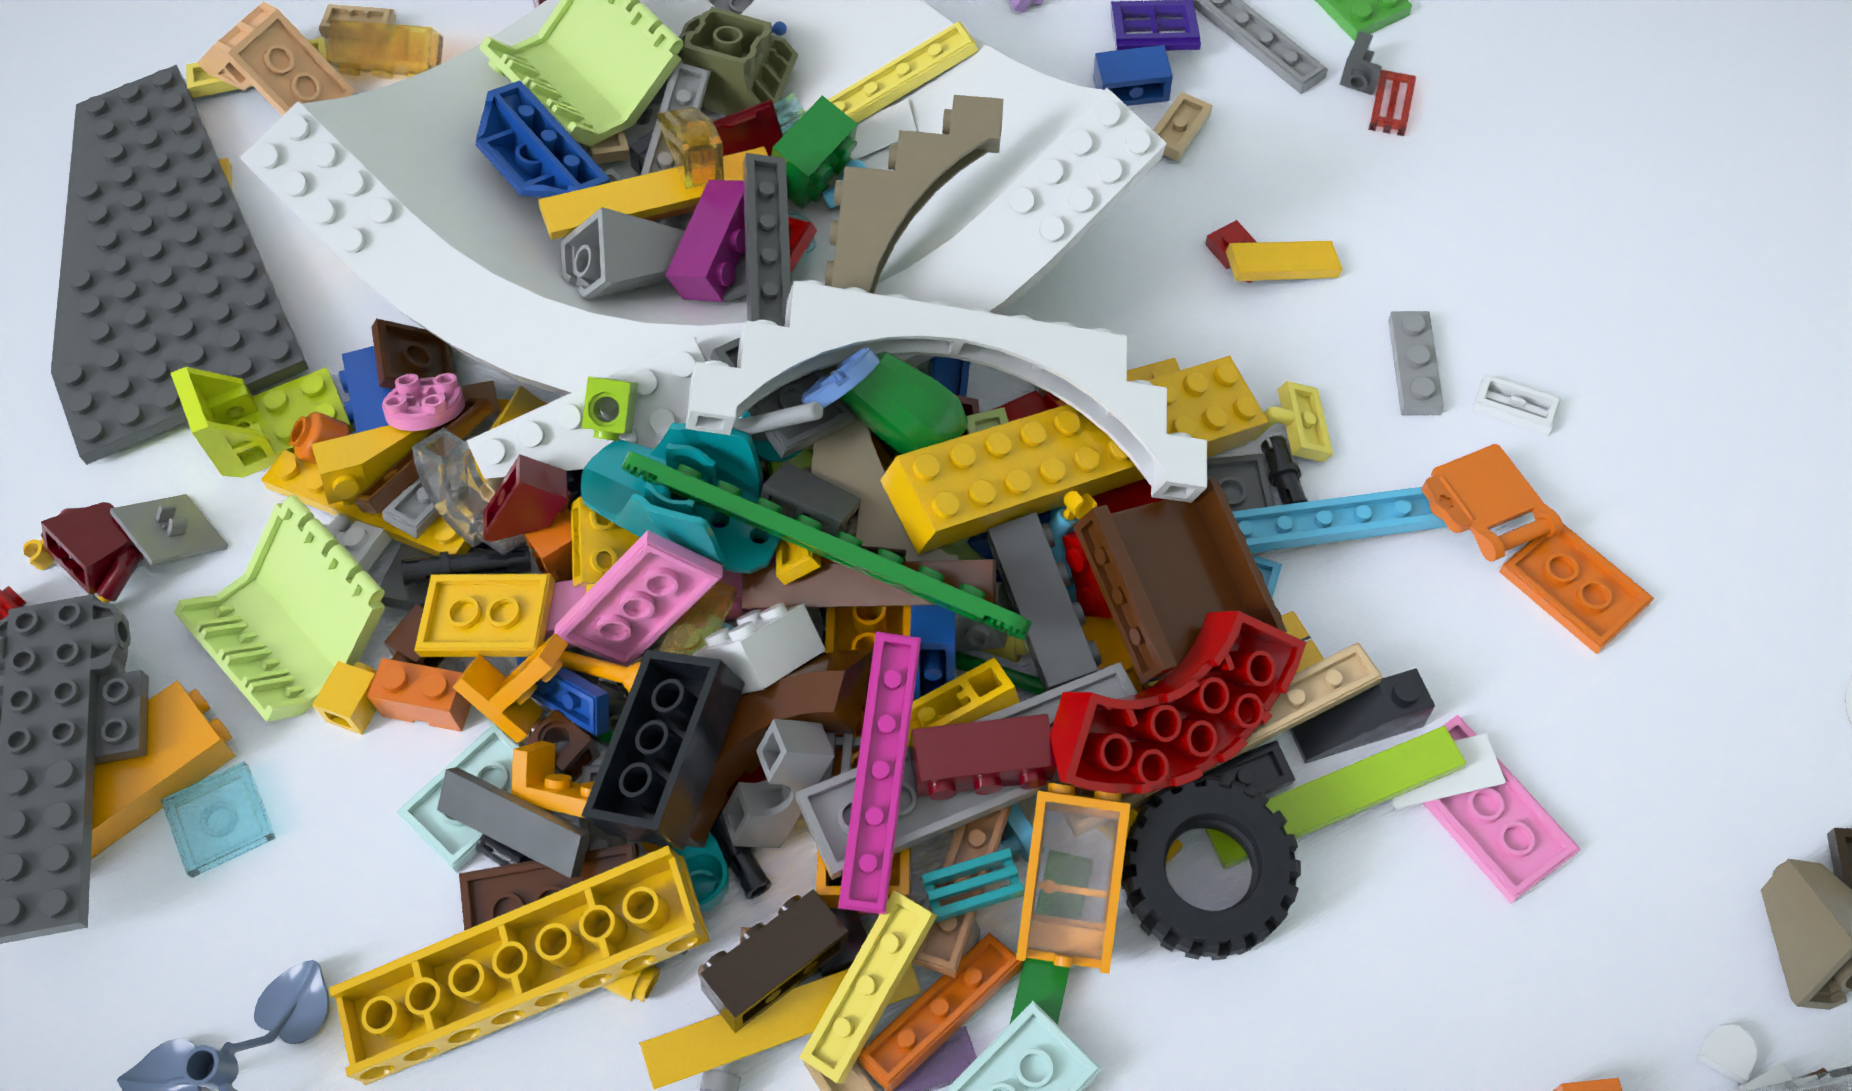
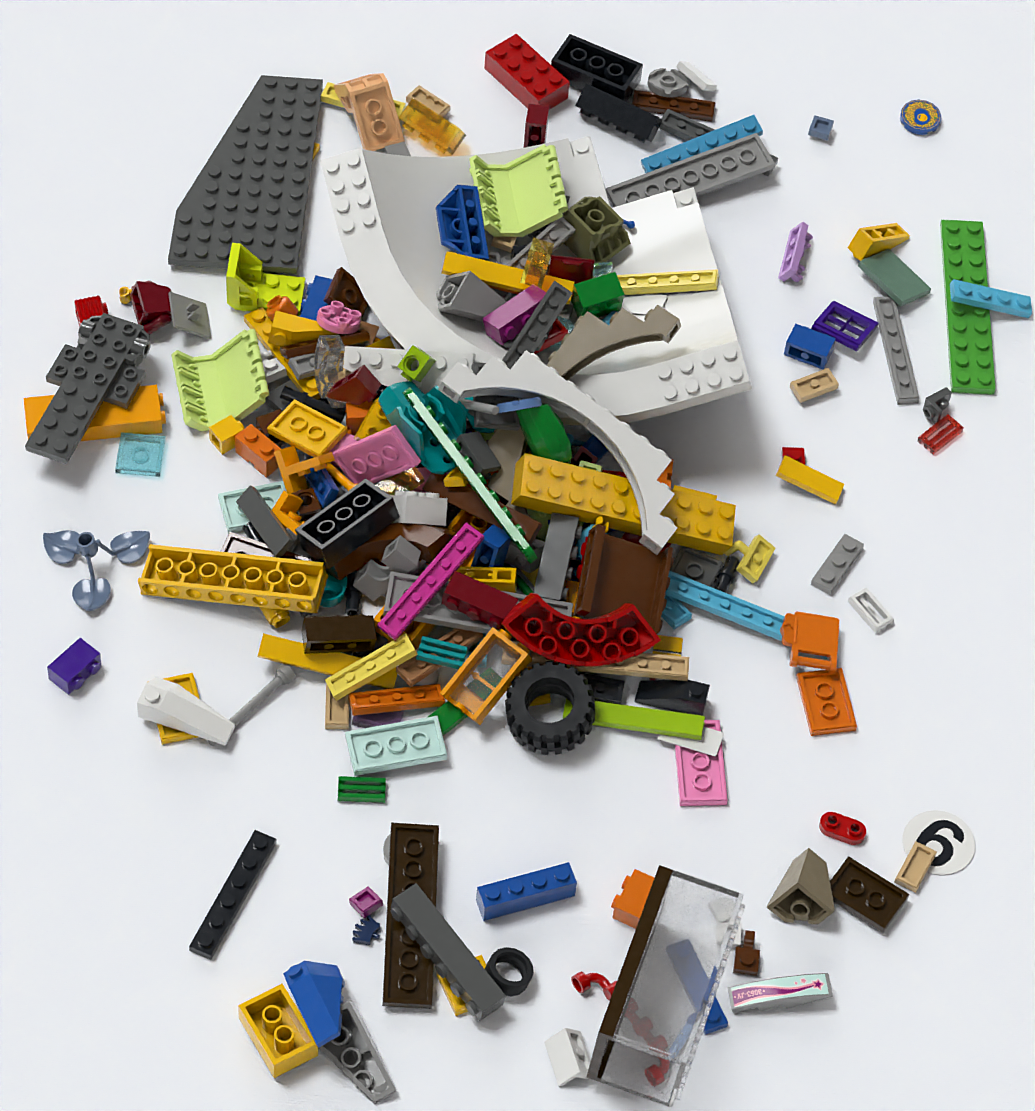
camera: 25 degrees right, 5 degrees down
(1777, 781) = (842, 828): none -> red plate

